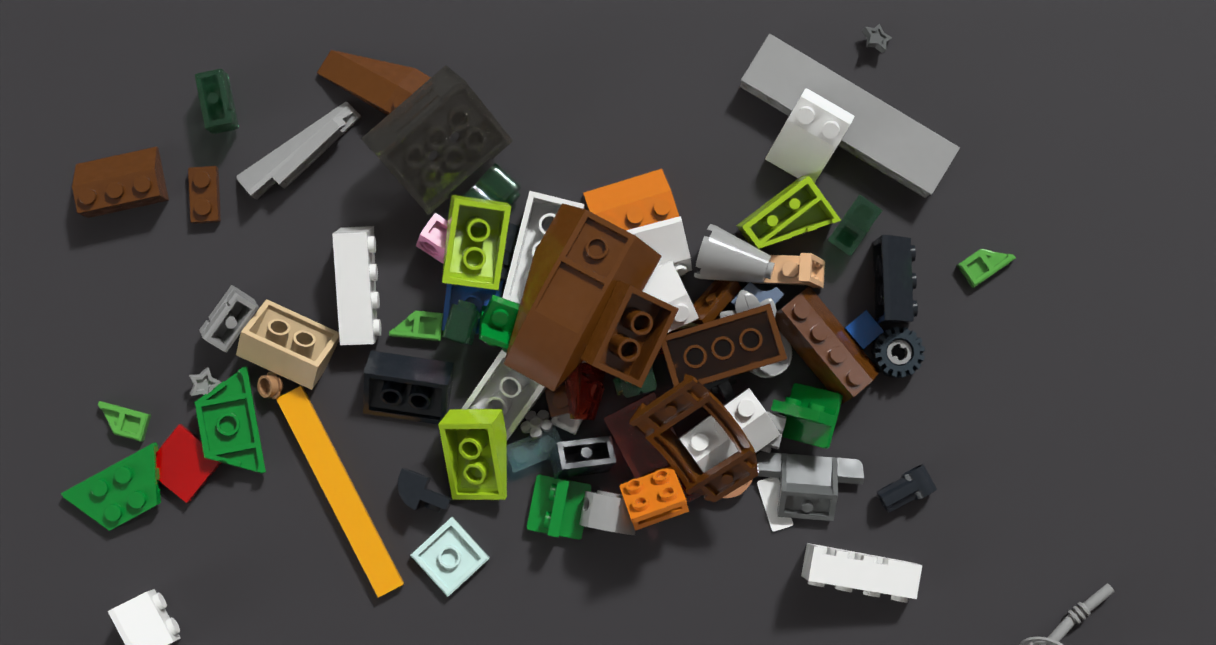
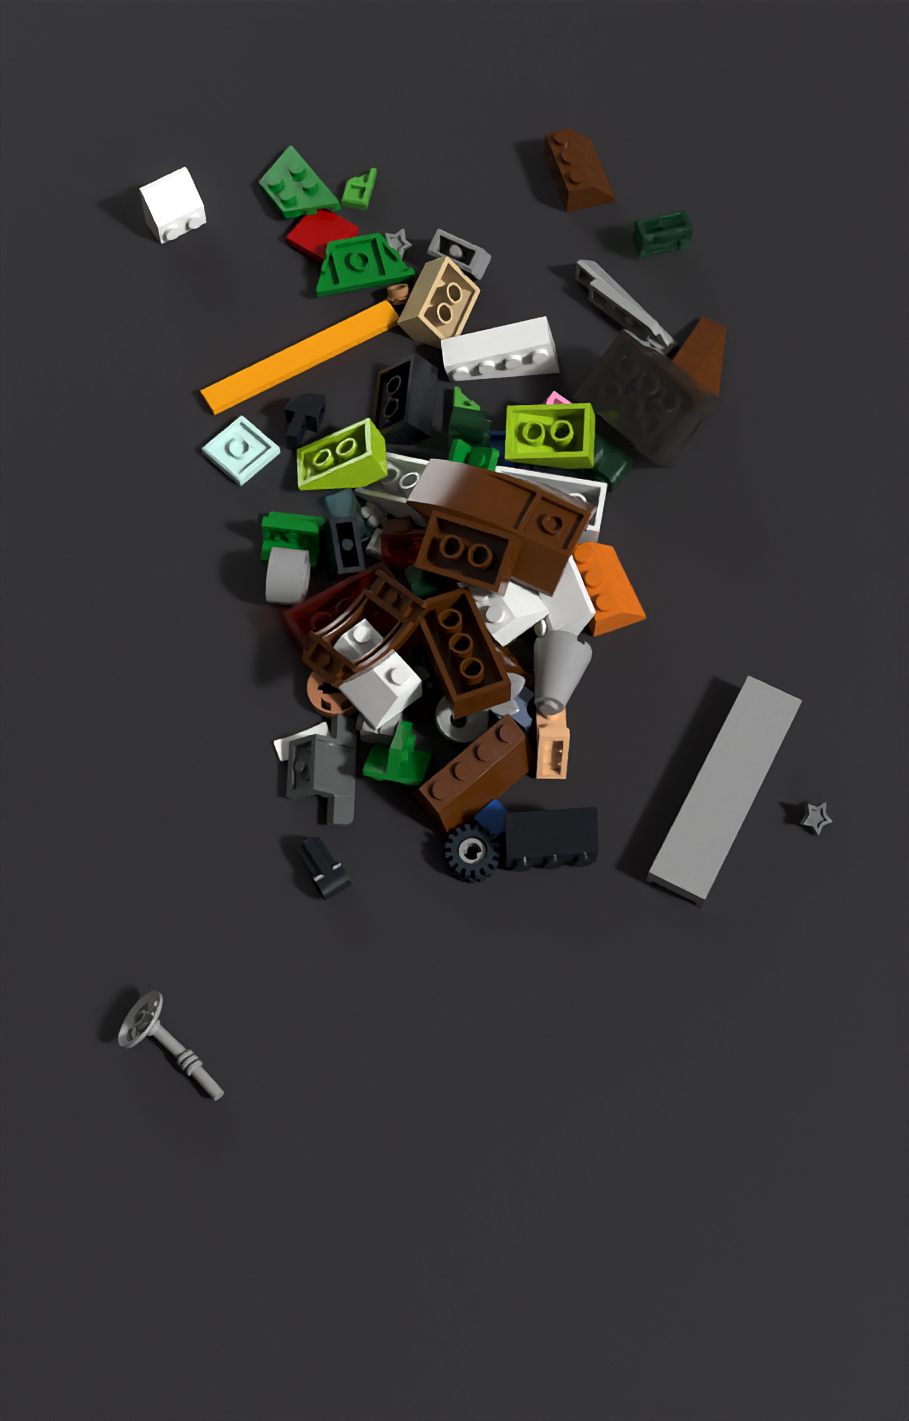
camera: 85 degrees right, 20 degrees down
(204, 194) = (574, 236): reddish brown plate -> none
(654, 498) = (301, 600): orange bracket -> none
(788, 214) = (610, 730): lime wedge -> none
(809, 136) = (699, 742): white slope -> none
(854, 225) = (611, 801): clear green brick -> none
(861, 571) = (232, 819): white wedge -> none
(983, 265) = (577, 943): bright green tile -> none

